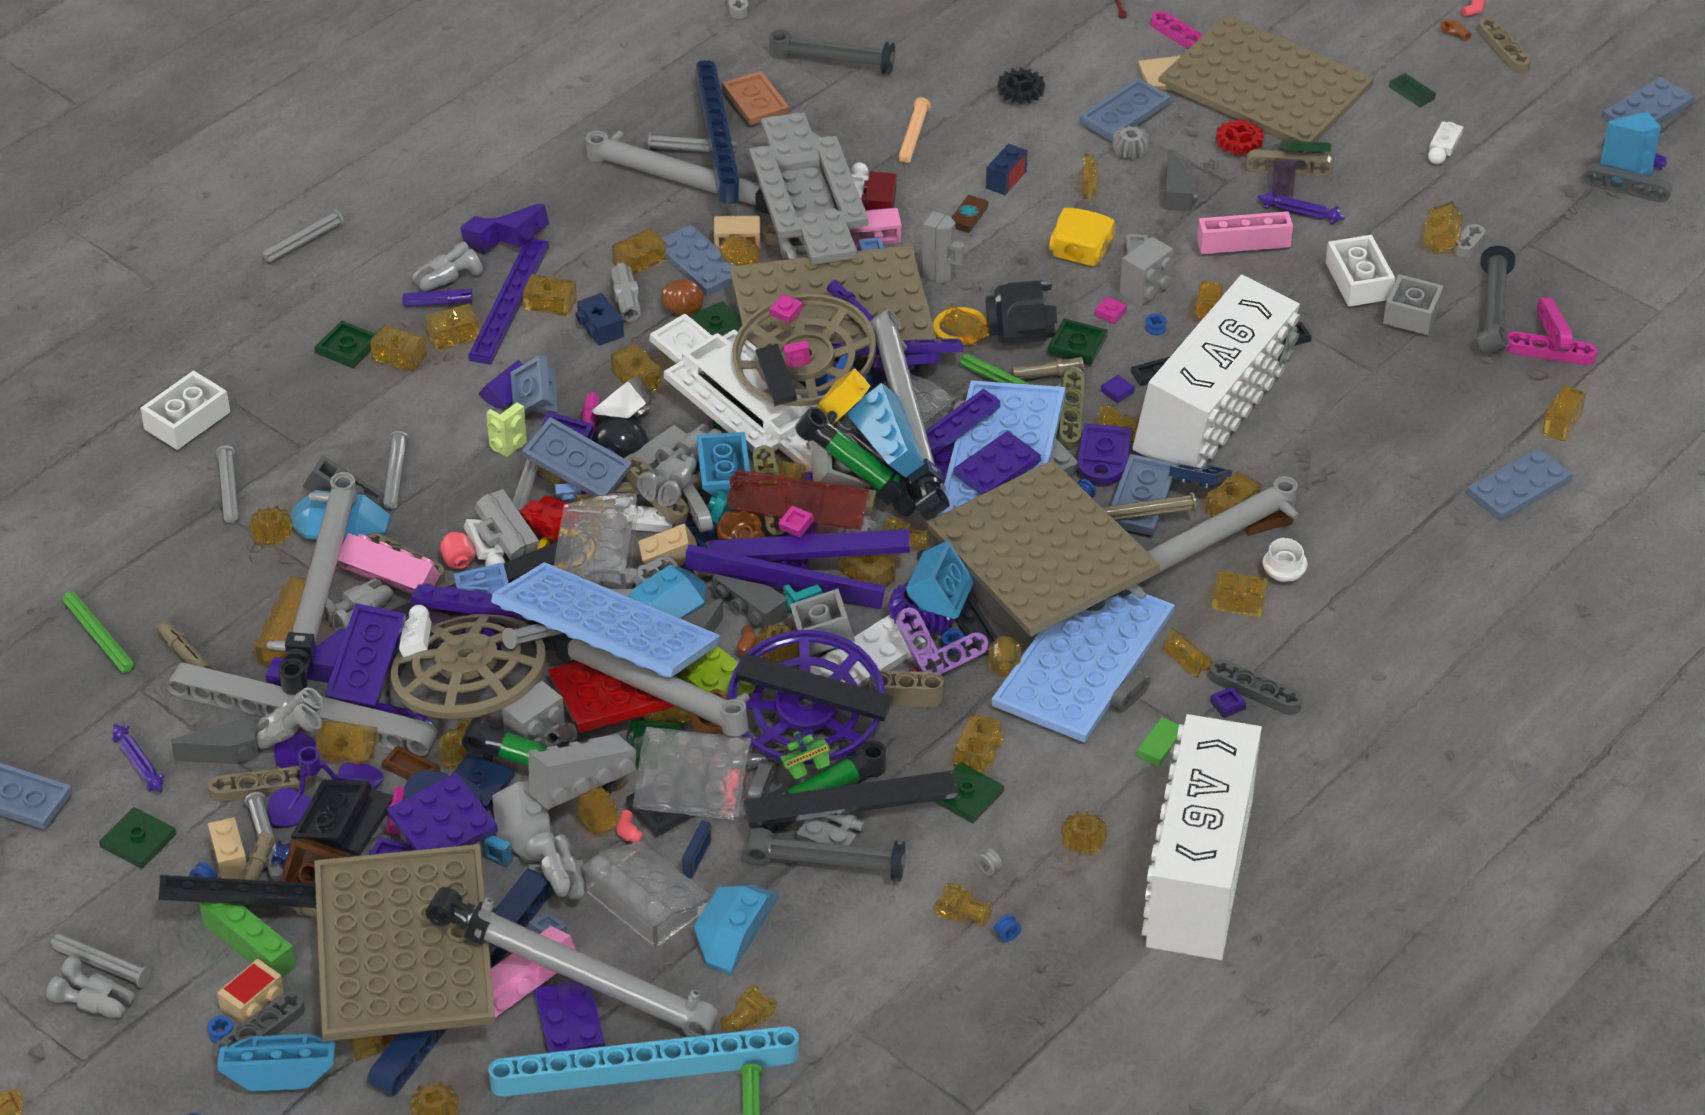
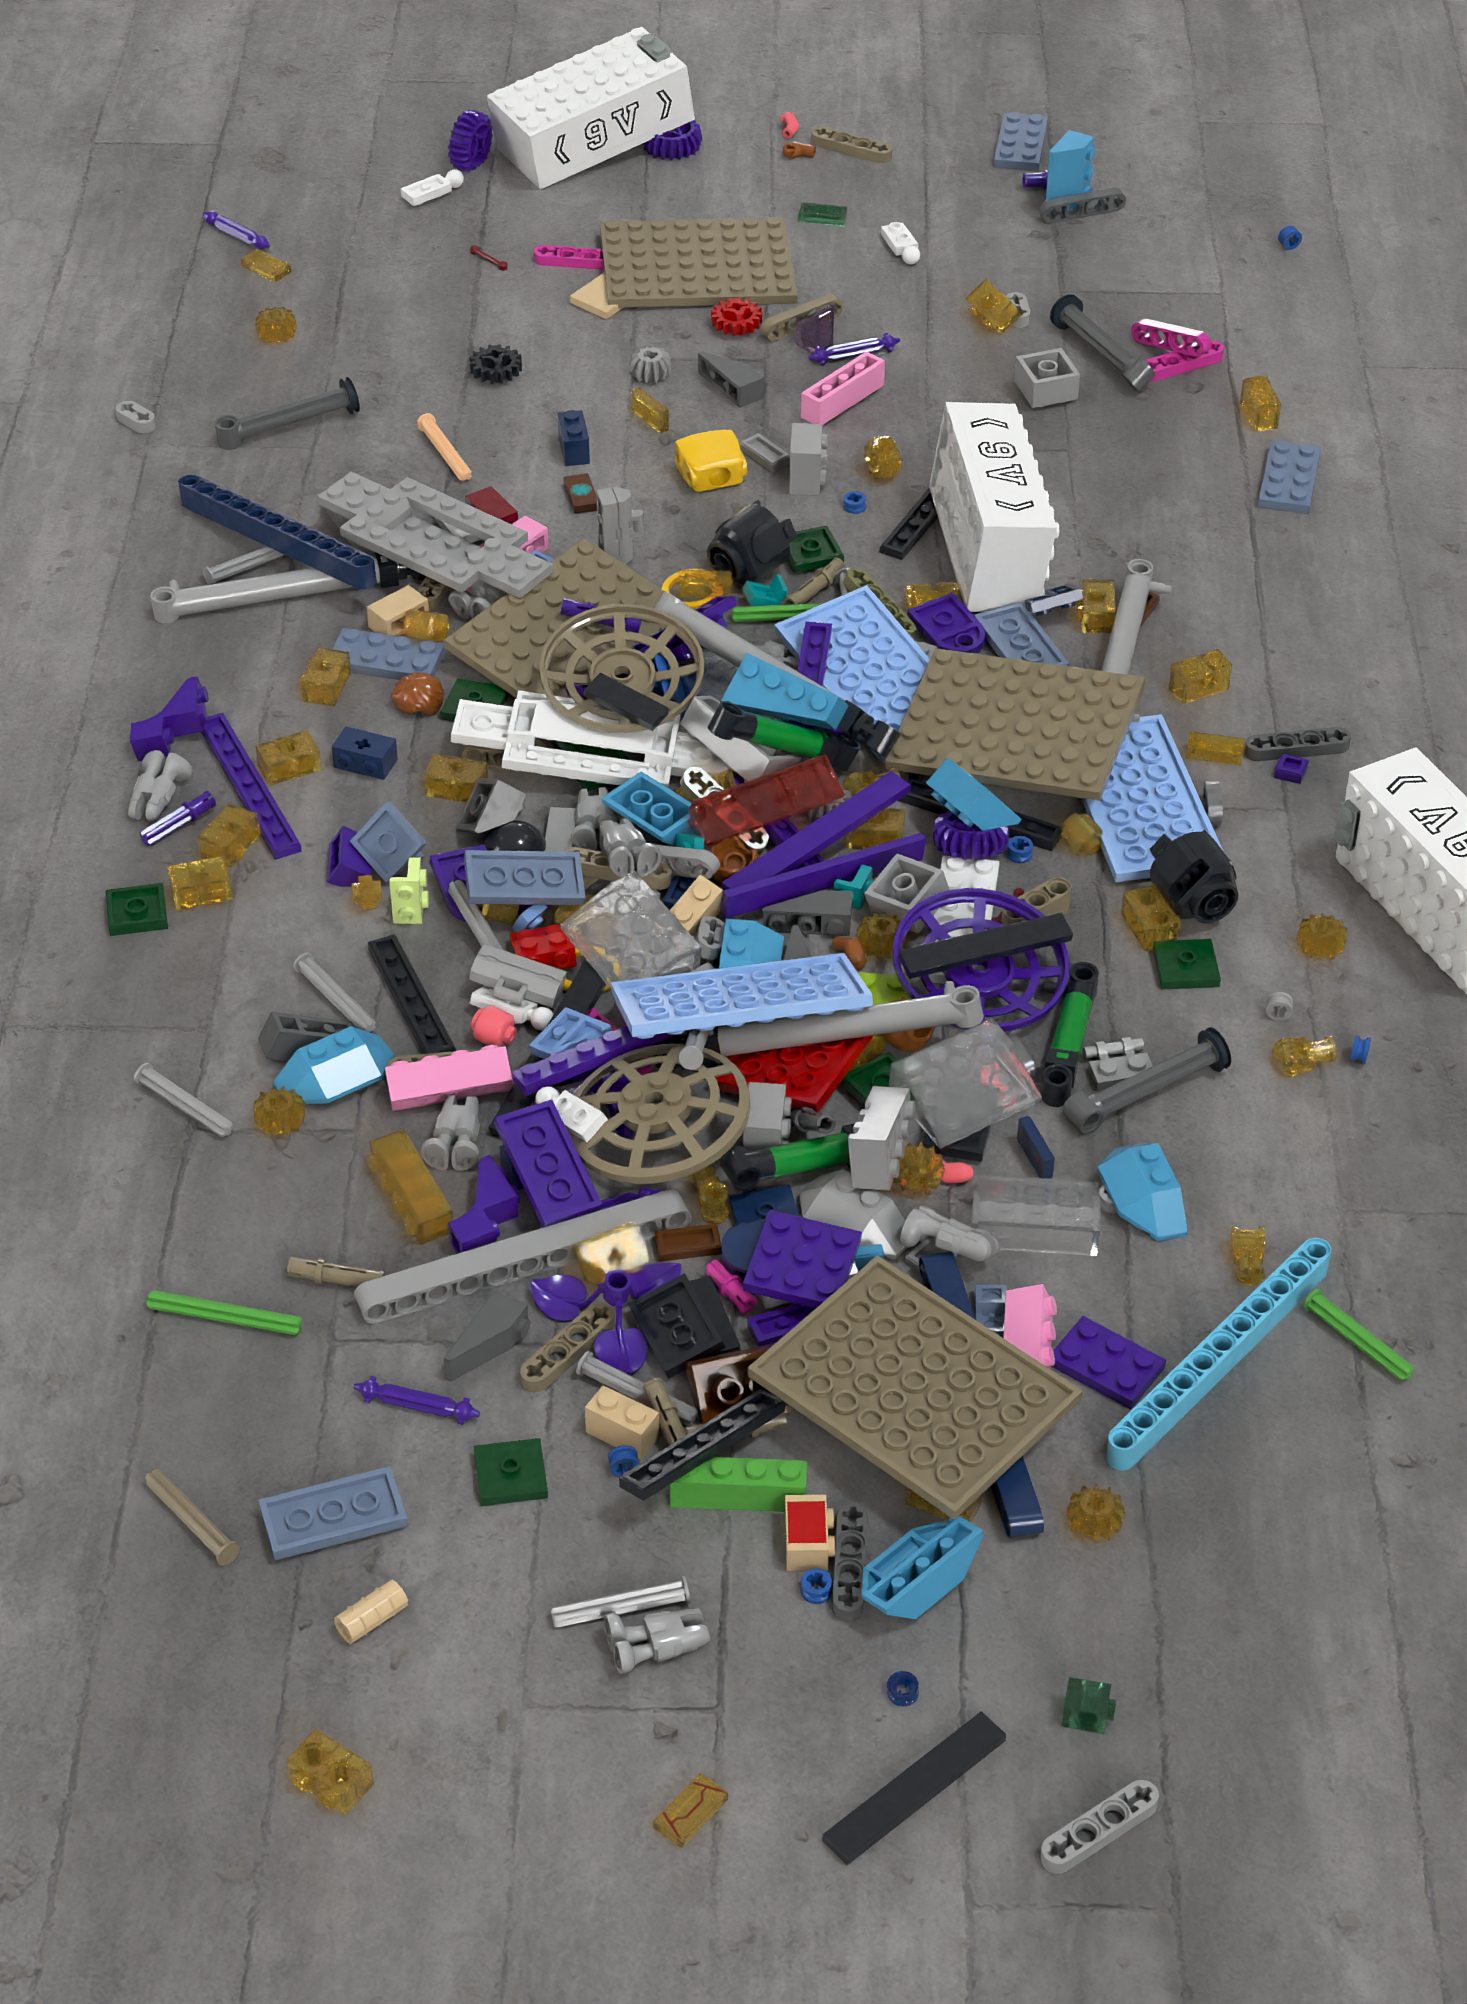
camera: 40 degrees left, 0 degrees up
(185, 410) = (57, 1055): white brick -> none
(280, 853) = (684, 1389): clear blue bush -> none
(284, 720) = (539, 1275): light grey piece -> none
(300, 643) = (473, 1190): light grey piece -> none
(439, 500) = (410, 995): none -> black tile
(481, 409) = (366, 892): none -> clear yellow gear
(483, 924) = (984, 1315): light grey piece -> none
(591, 401) = (457, 838): dark pink axle -> none
(626, 292) = (356, 715): light grey piece -> none
(755, 97) = (267, 487): nougat plate -> none
(786, 308) = (571, 638): dark pink plate -> none
(794, 760) = (1042, 1004): bright green hips -> none
(796, 521) = (789, 819): dark pink plate -> none
(797, 354) = (632, 670): dark pink plate -> none
(844, 394) = (714, 680): yellow slope -> none
(849, 799) = (1116, 1024): black tile -> none
(930, 652) = (994, 848): medium lavender beam -> none
(997, 463) = (887, 679): dark purple plate -> none
(1000, 356) = (765, 595): none -> teal bracket
(1038, 739) = (1194, 876): none -> black piece
(1110, 310) = (803, 510): dark pink plate -> none
(1117, 389) = (890, 570): dark purple tile -> none
(1124, 108) = (609, 341): sand blue plate -> none
(1152, 507) = (1049, 647): dark tan axle -> none
(1158, 742) = (1281, 830): bright green tile -> none
(1285, 560) = (1201, 630): white piece -> none
(1305, 147) = (803, 296): dark green plate -> none
(1359, 270) = (972, 372): white brick -> none

